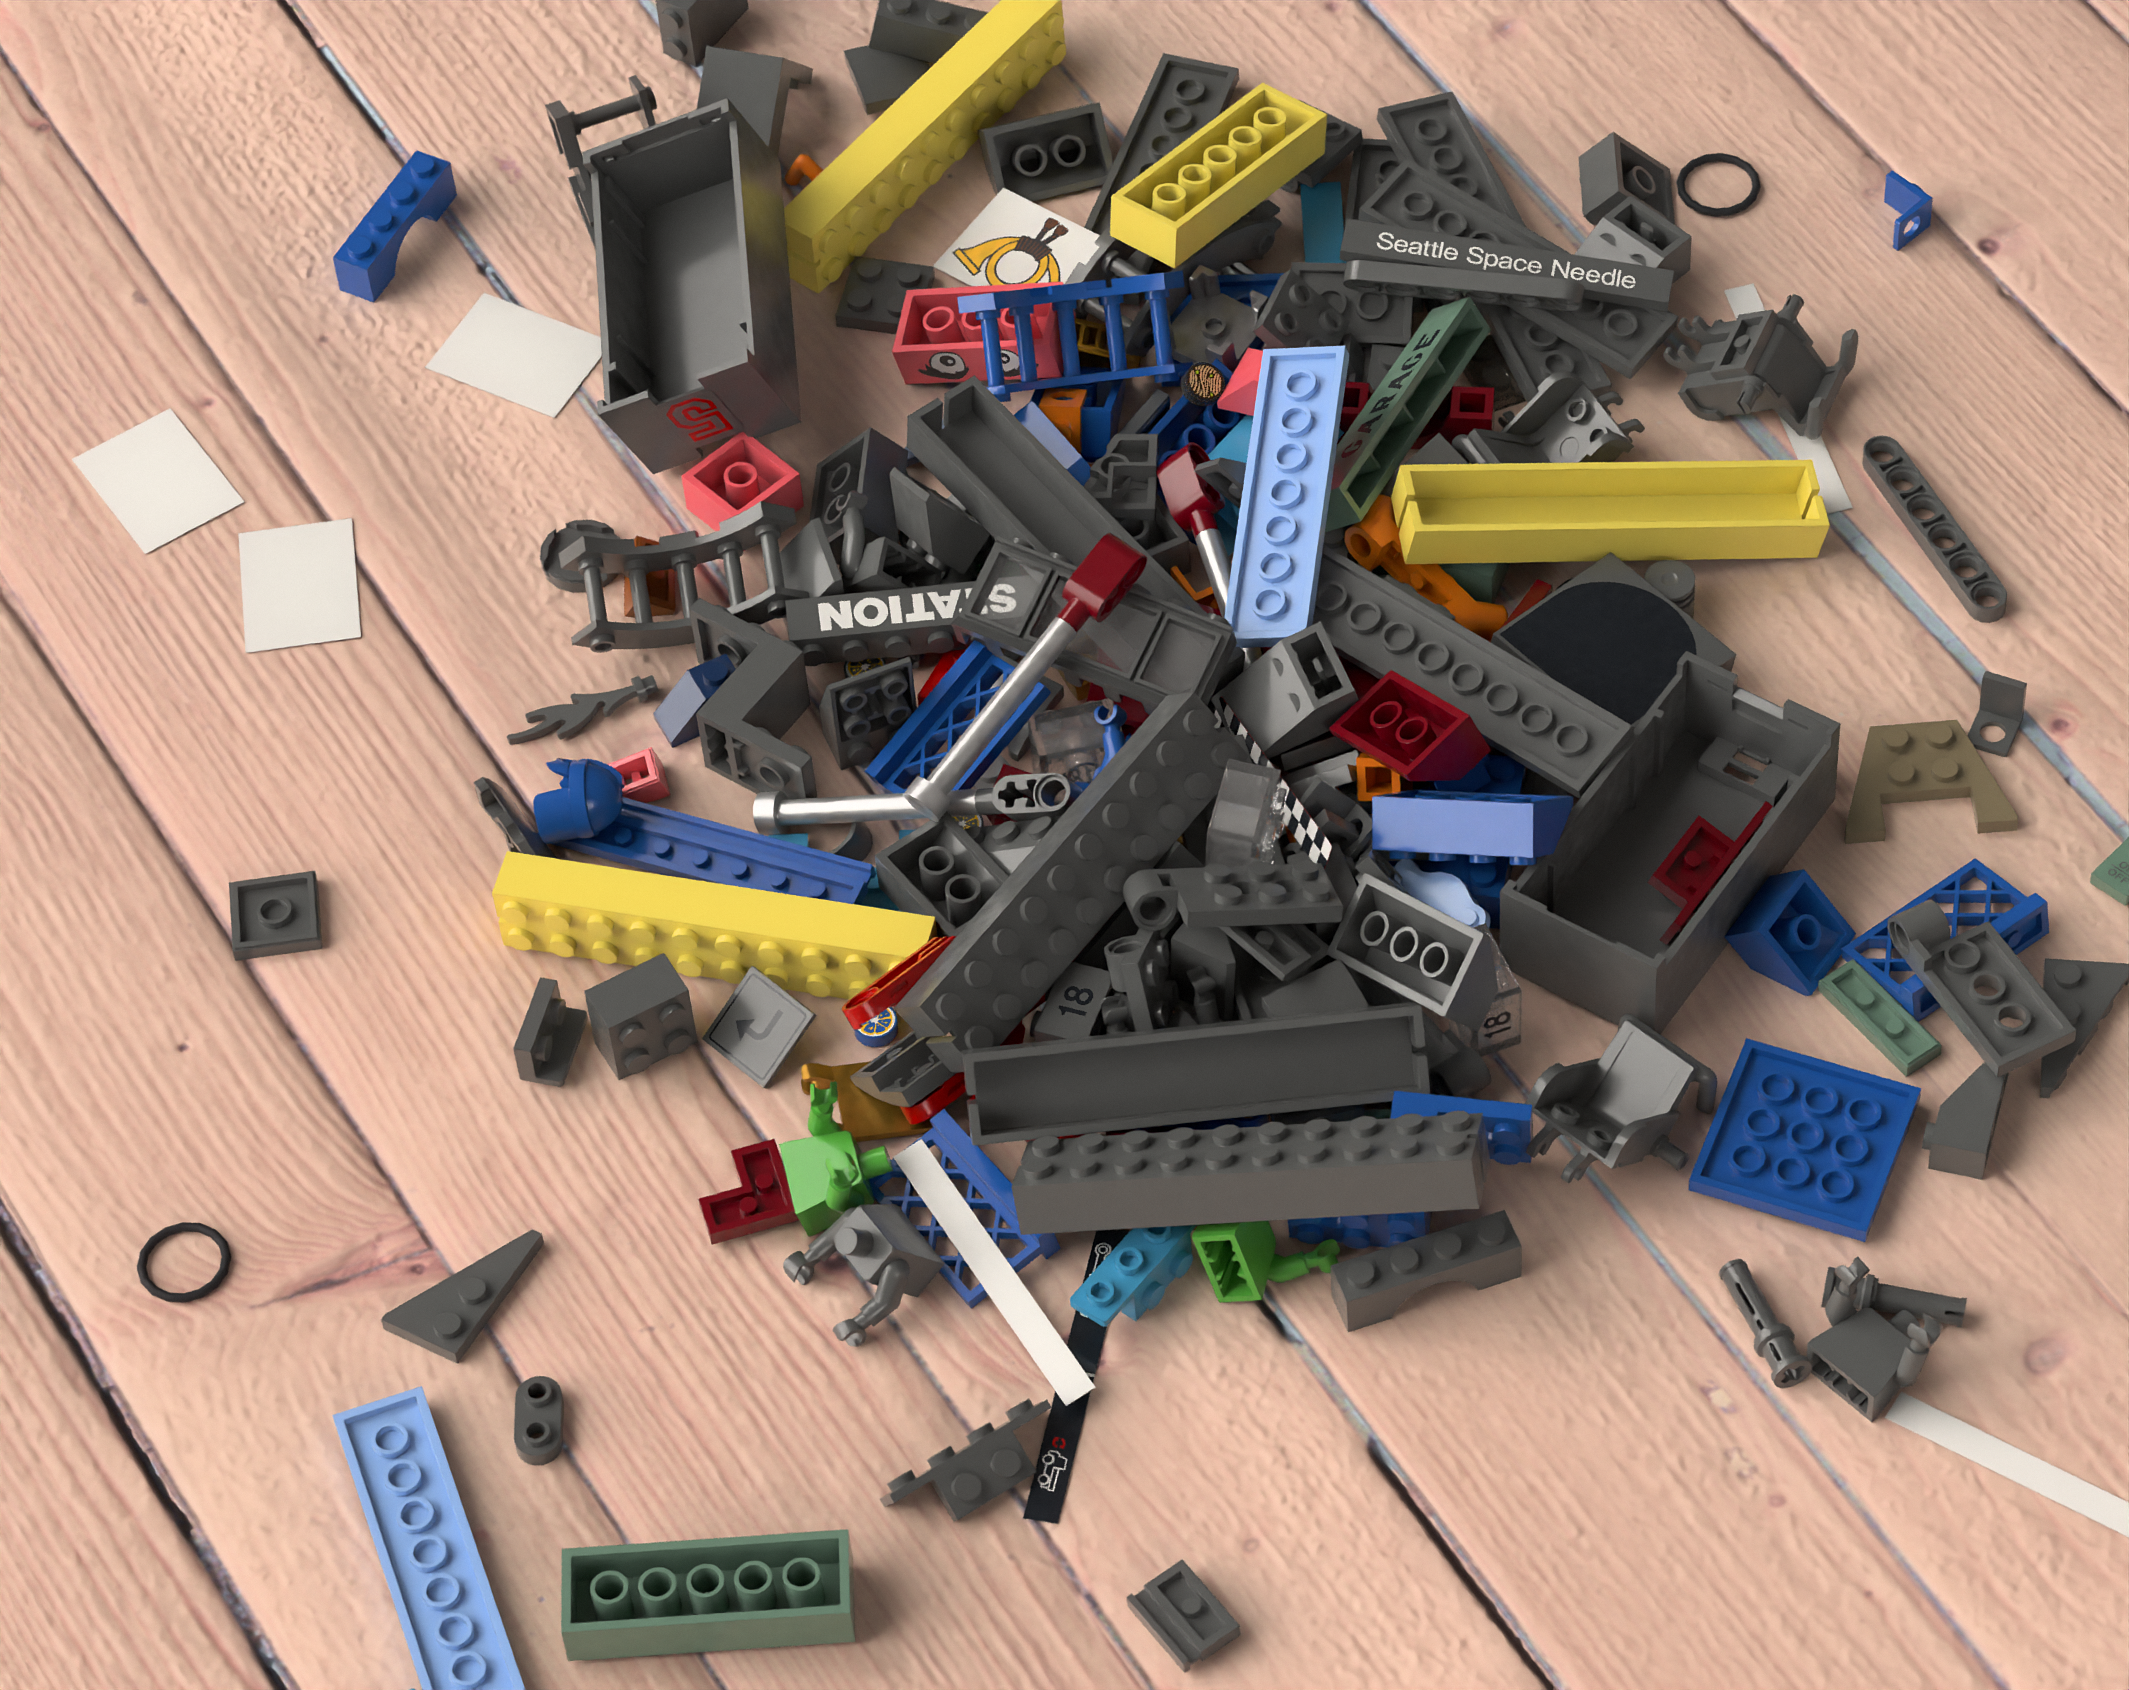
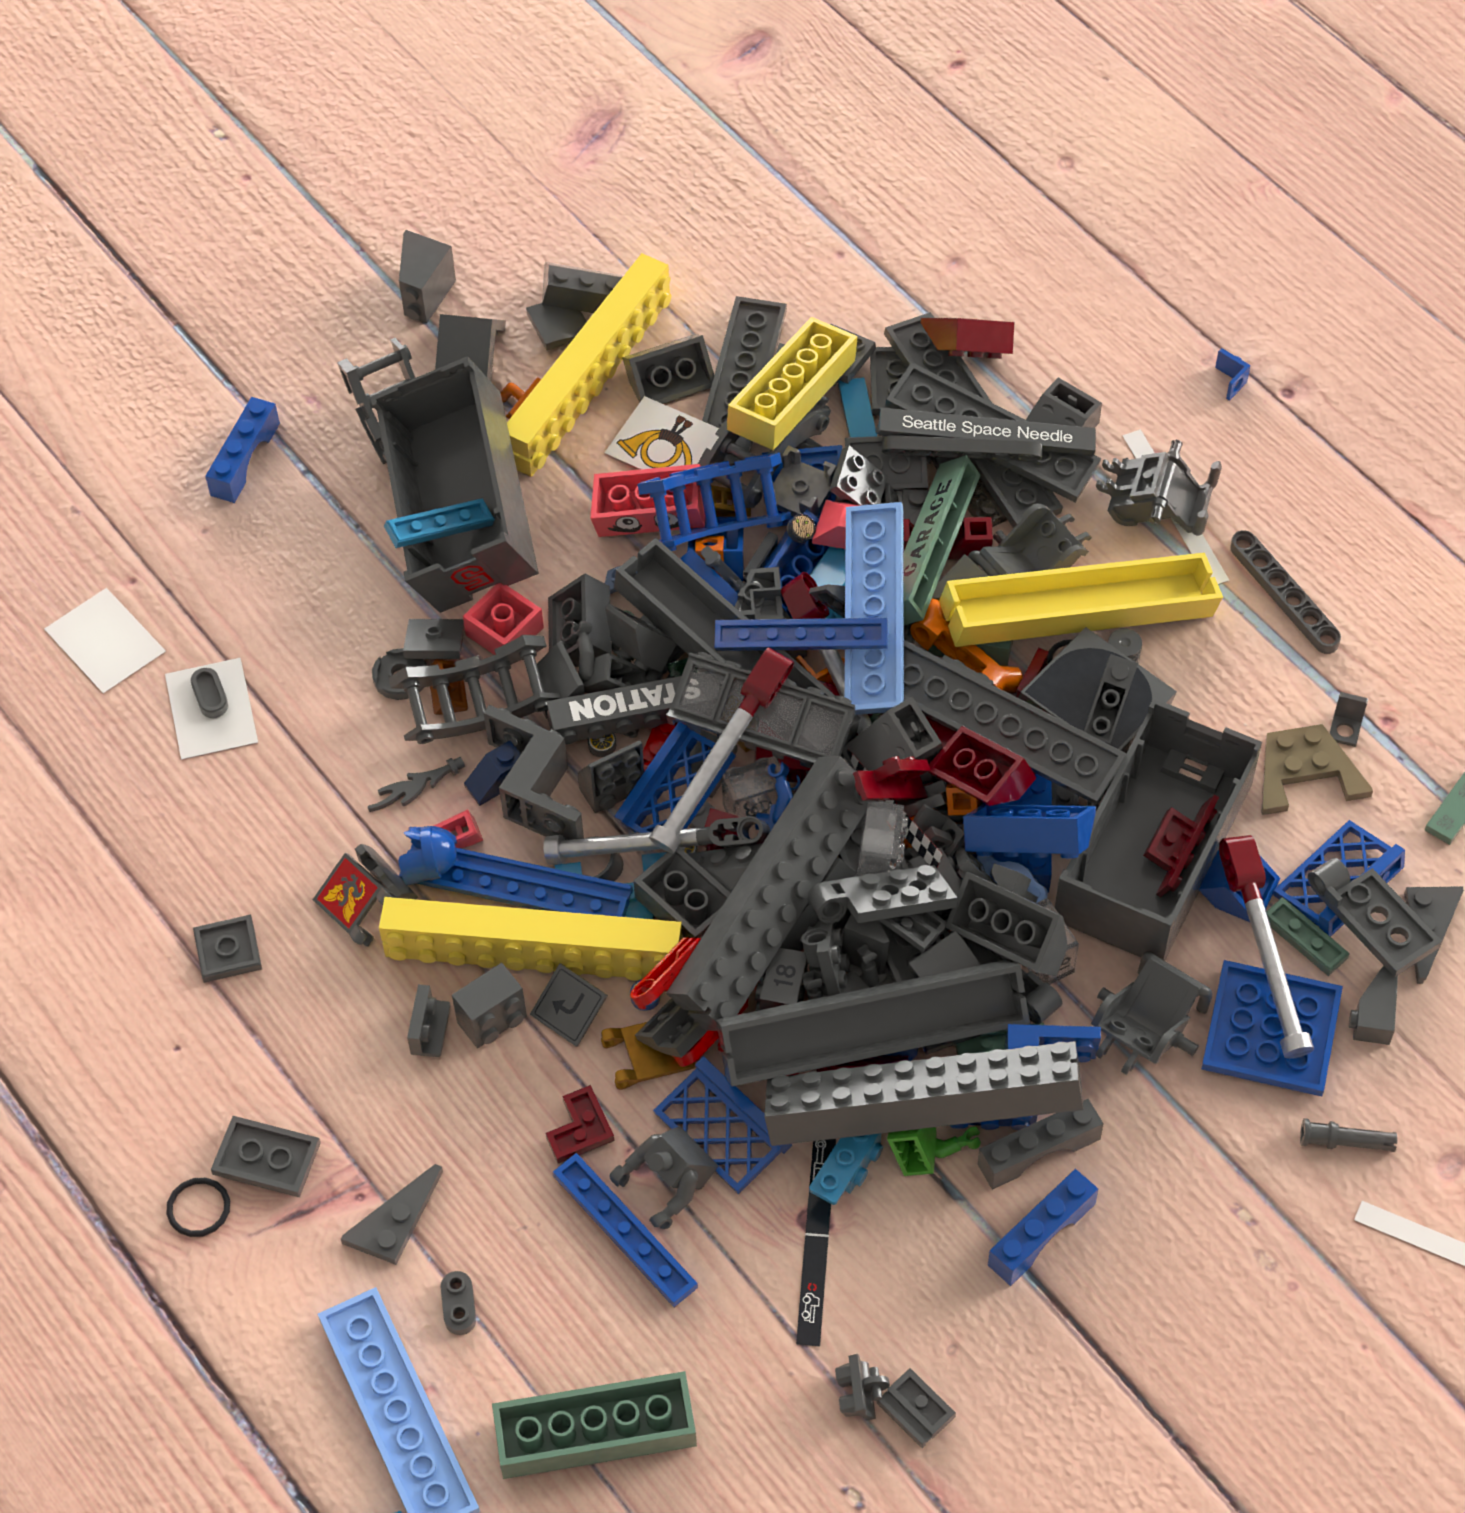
camera: 10 degrees left, 5 degrees up
(289, 1199) = (265, 1156): none -> dark grey plate
(298, 562) = (209, 692): none -> dark grey tile
(461, 854) = (350, 896): none -> flag
(518, 355) = (336, 534): white sticker -> none
(637, 509) = (434, 639): none -> dark grey plate
(661, 338) = (439, 523): none -> dark azure tile
(795, 1341) = (625, 1230): none -> blue plate
(829, 1169) = (631, 1105): bright green torso -> none
(877, 293) = (573, 475): dark grey plate -> none
(978, 1471) = (761, 1313): dark grey bracket -> none
(994, 1272) = (752, 1169): white sticker -> none
(1061, 416) = (712, 559): none -> dark grey piece
(1112, 1577) = (866, 1387): none -> dark grey hips
(1171, 524) = (801, 634): none -> blue plate
(1275, 737) = (893, 781): none -> dark red bracket
(1371, 1408) = (1024, 1242): none -> blue arch
(1431, 890) = (1012, 881): none -> dark grey slope
(1507, 128) = (971, 336): none -> dark red slope
(1617, 170) = (1044, 362): dark grey slope -> none
(1627, 649) = (1110, 698): none -> dark grey slope
(1719, 157) = (1111, 345): black piece -> none
(1772, 1338) = (1274, 1172): dark grey pin -> none
(1792, 914) = (1246, 874): none -> piece
(1864, 1353) = (1341, 1178): dark grey torso -> none

